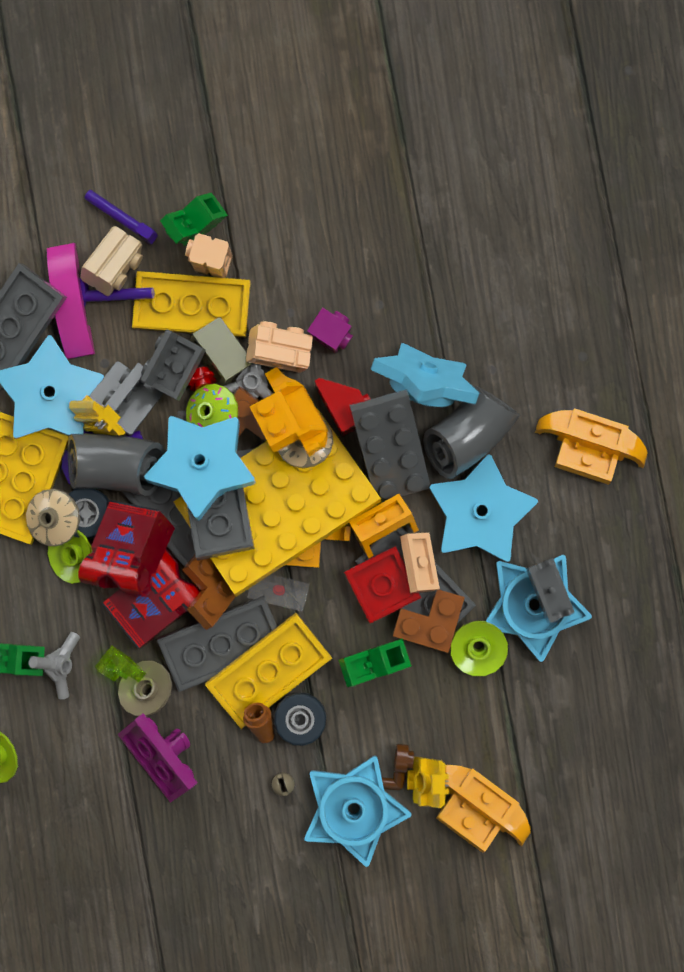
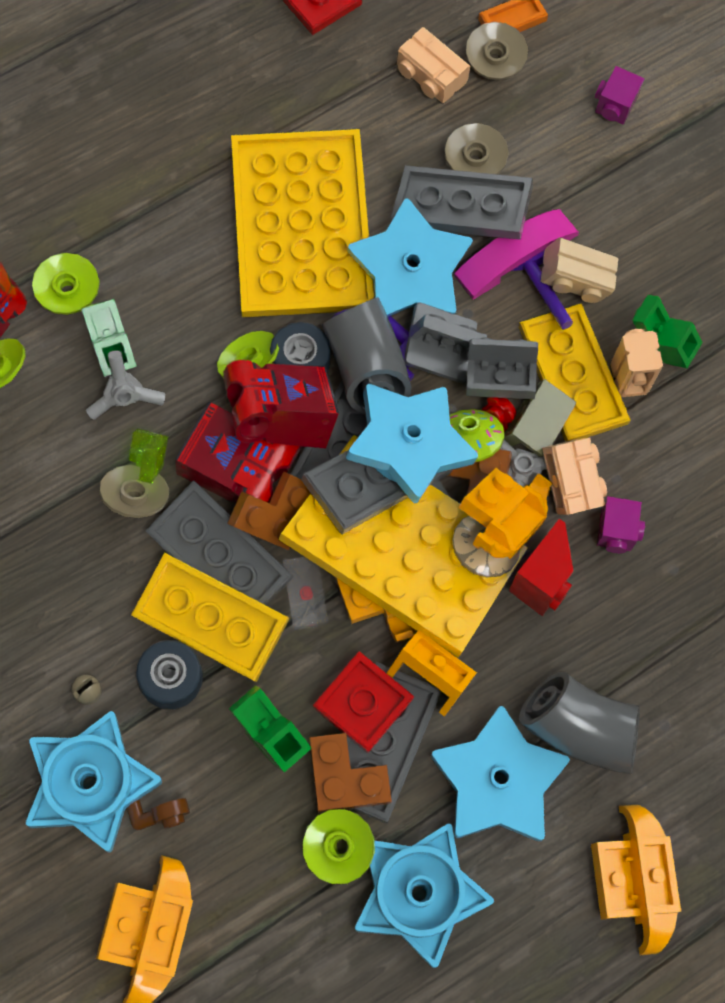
camera: 55 degrees right, 15 degrees down
(63, 513) = (280, 319): tan dish -> none
(96, 417) = (410, 315): yellow piece -> none
(140, 229) = (627, 282): dark purple piece -> none
(160, 755) = (65, 536): magenta plate -> none
(259, 721) = (147, 628): dark orange cone -> none
(390, 445) = (527, 636): dark grey plate -> none
(419, 562) = (408, 730): light nougat plate -> none
(426, 378) = (620, 643): medium azure plate -> none
(428, 782) = (155, 852): yellow piece -> none
(550, 590) = (446, 897): dark grey hinge -> none

